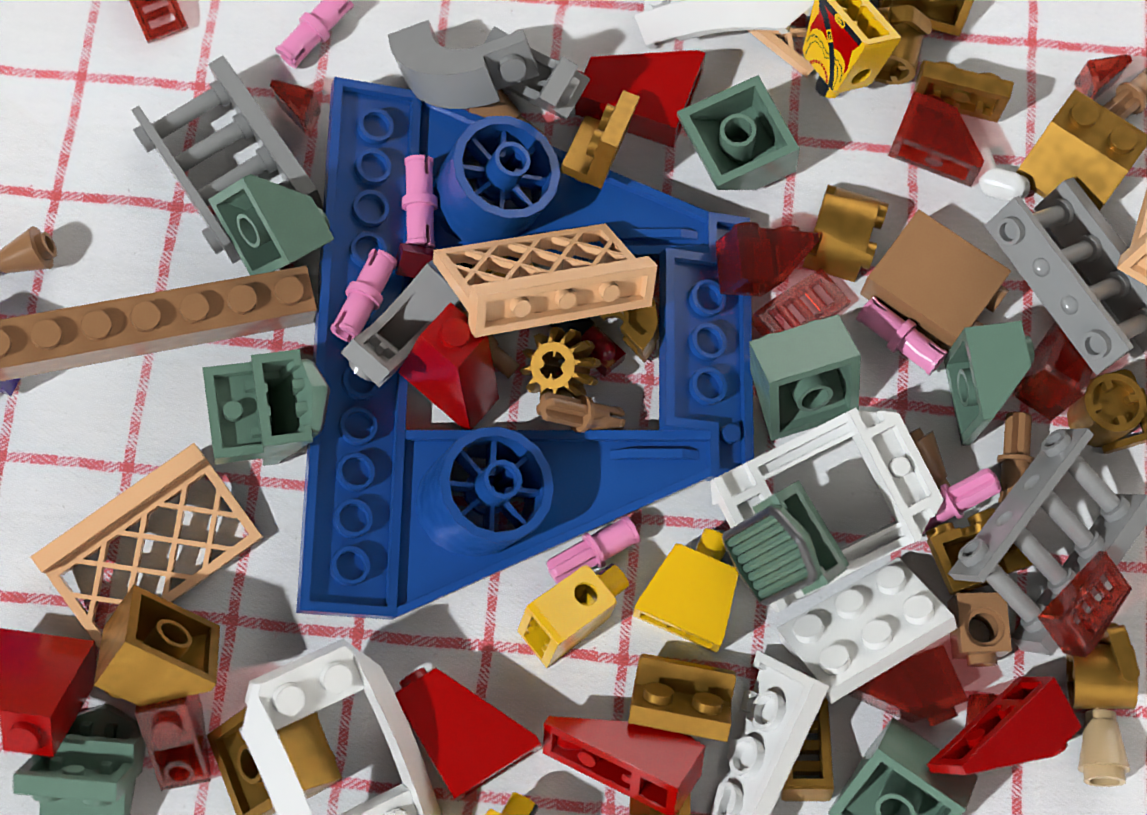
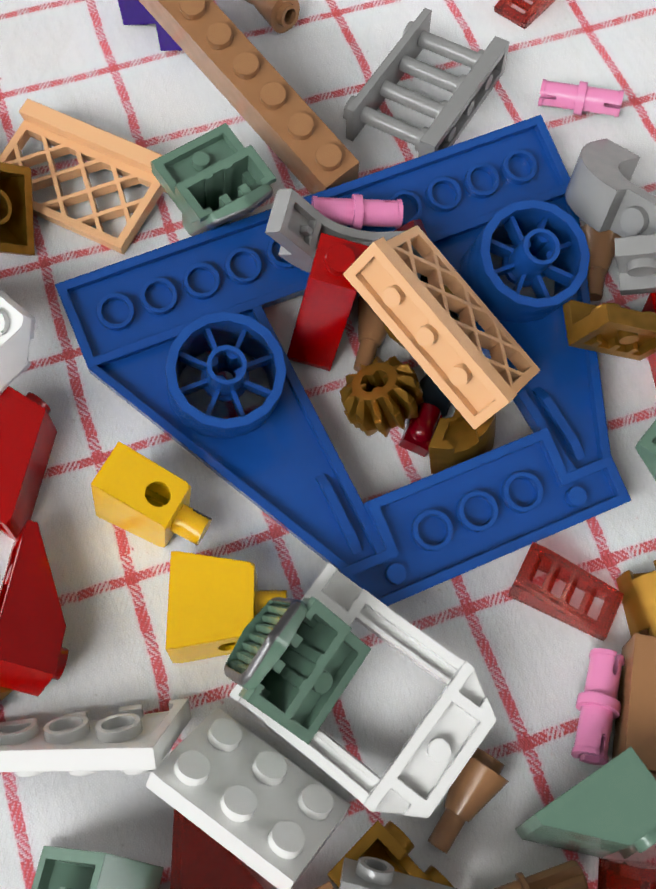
camera: 65 degrees right, 10 degrees down
(270, 223) = (382, 122): sand green slope -> none
(298, 104) = (505, 108): clear red slope -> none
(419, 201) = (467, 222): bright pink pin -> none
(579, 413) = (343, 427): medium nougat axle -> none
(594, 549) = (223, 503): bright pink axle -> none
(682, 697) = (101, 641): pearl gold bracket -> none
(758, 258) = (591, 521): clear red slope -> none
(805, 375) = (492, 614): sand green slope -> none
(813, 789) = (91, 817): pearl gold slope -> none
(965, 495) = (441, 838): bright pink axle -> none

